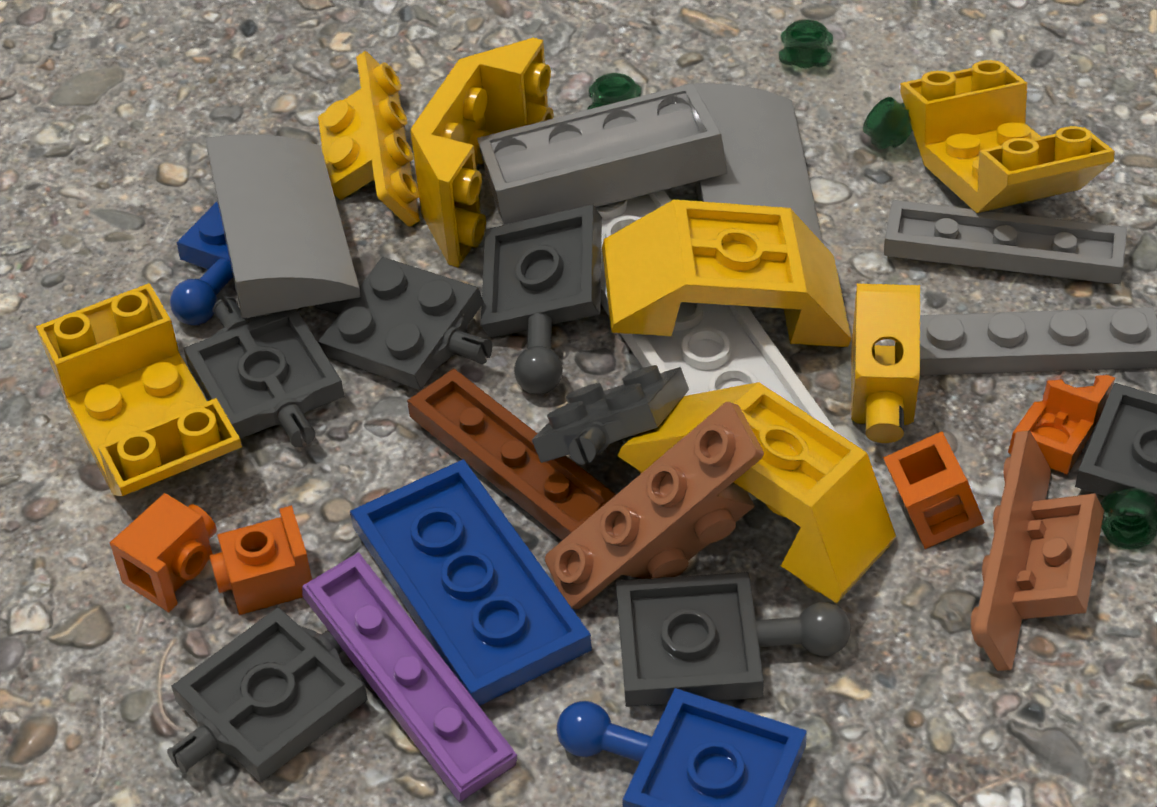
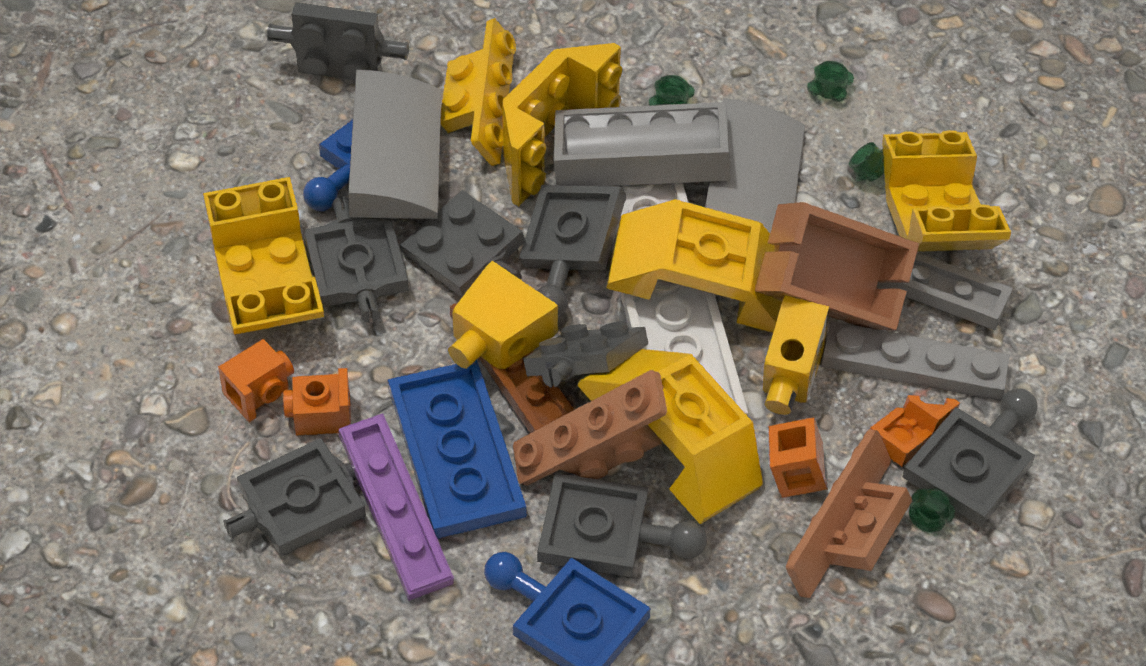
camera: 10 degrees right, 5 degrees up
(167, 113) = (336, 41): none -> dark grey plate
(485, 399) = (500, 320): none -> yellow torso
(908, 229) = (837, 265): none -> nougat piece

